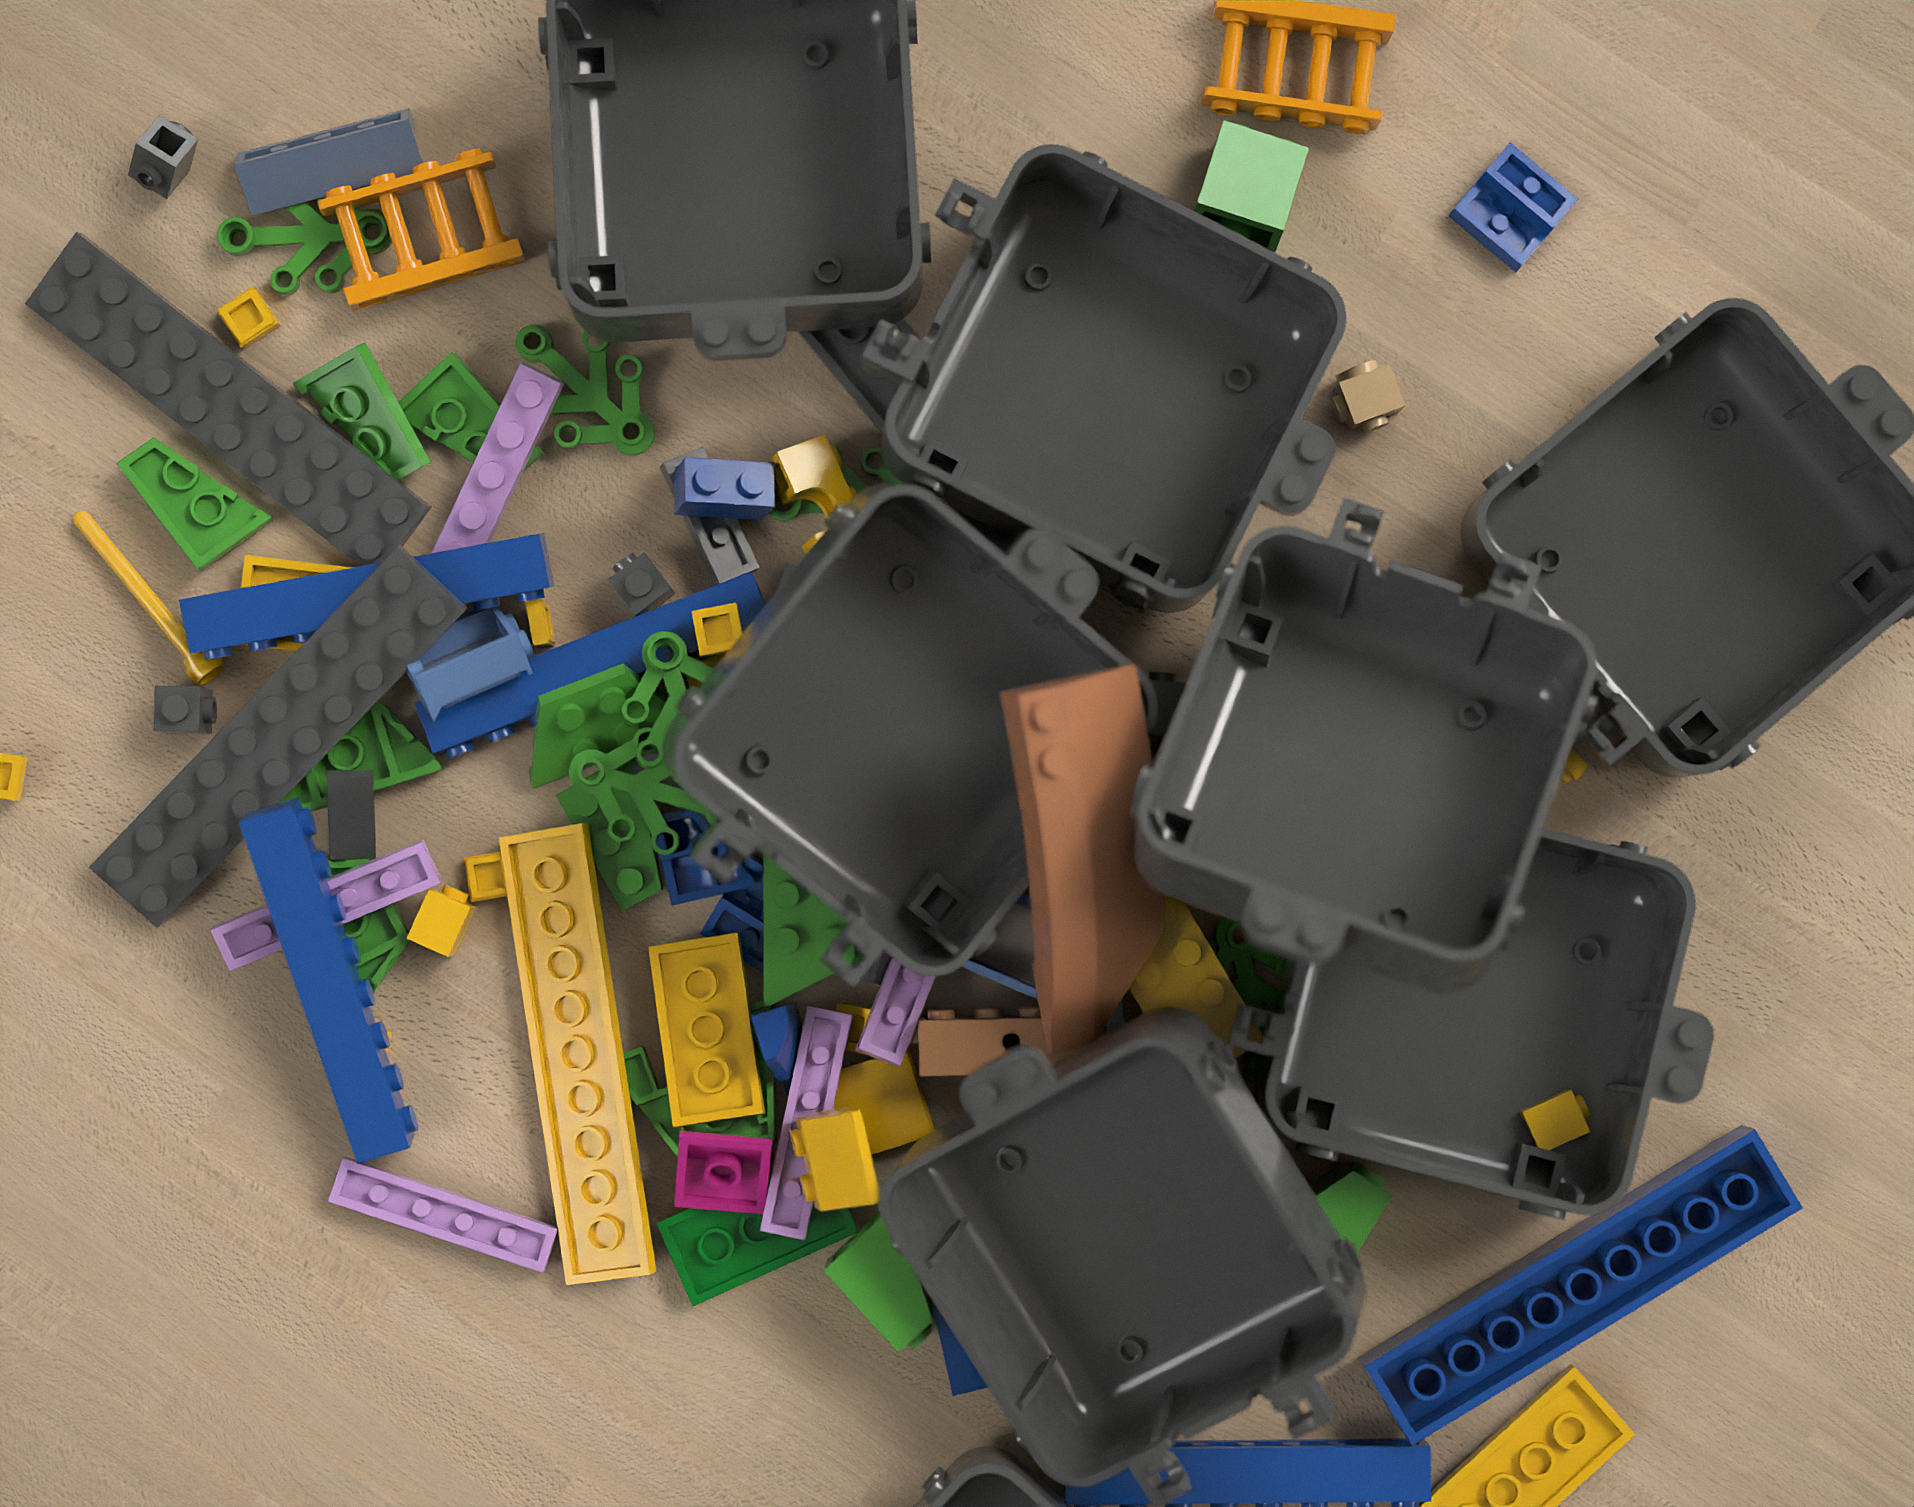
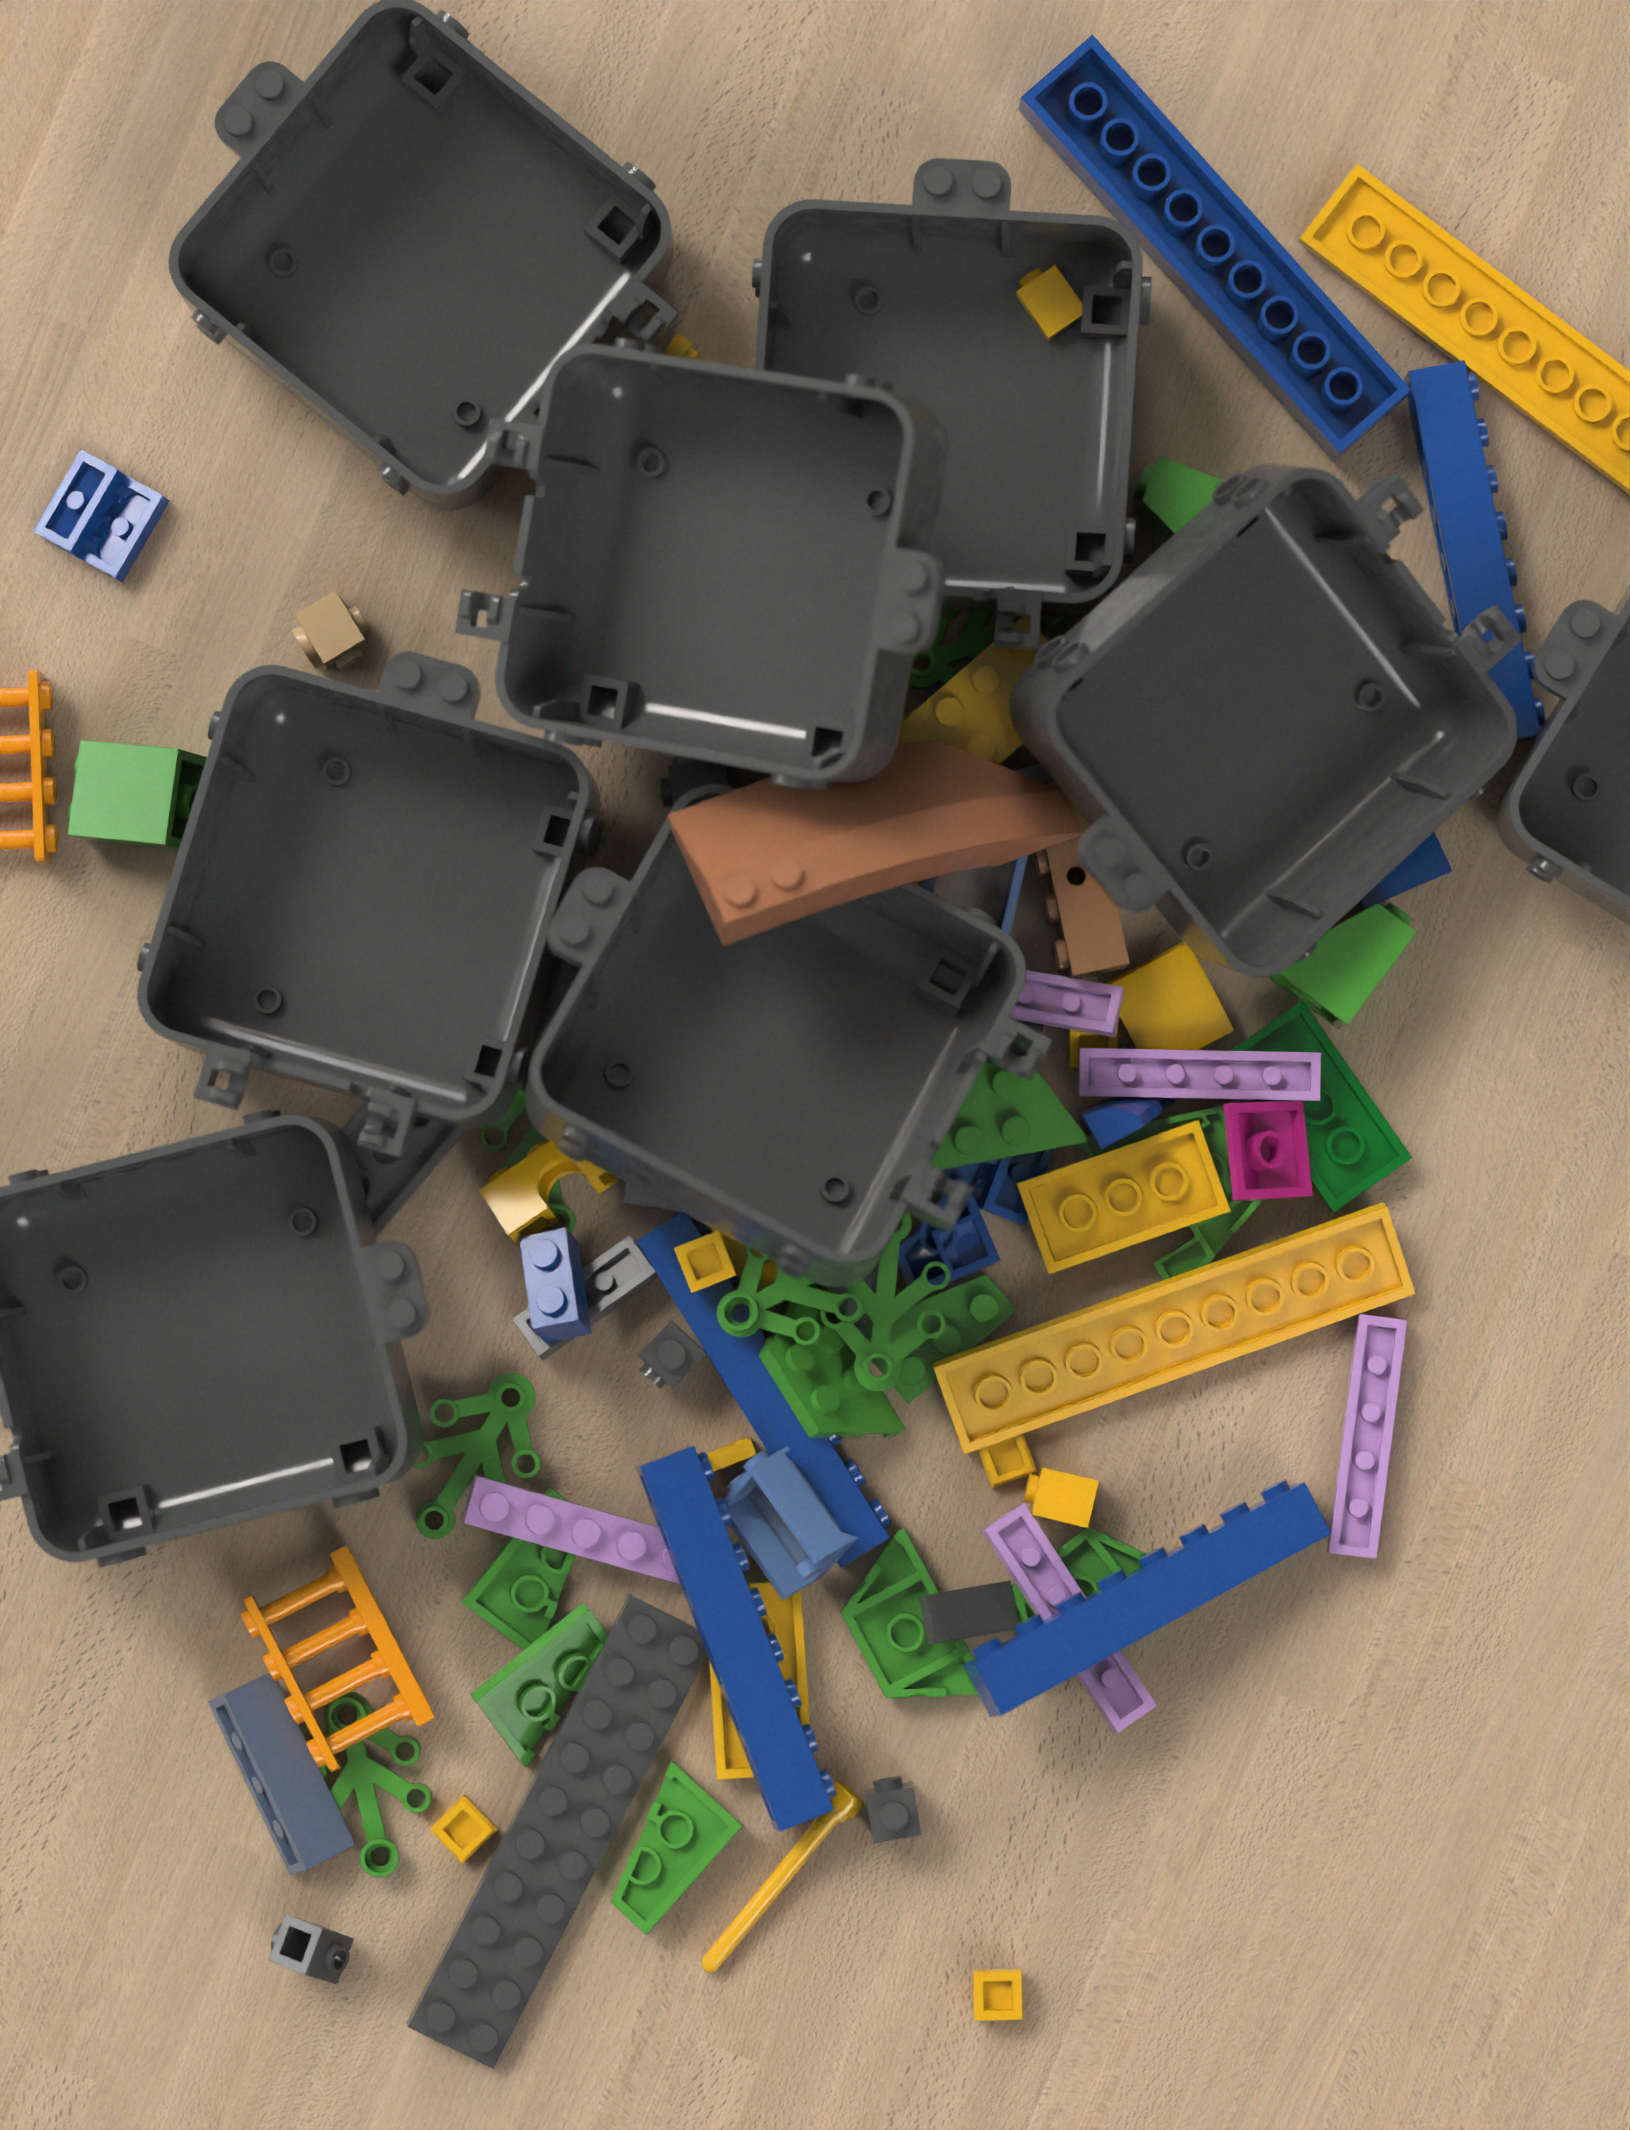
camera: 95 degrees left, 0 degrees up
(278, 735) = (902, 1702): dark grey plate -> none
(835, 1159) = (1231, 1033): yellow slope -> none

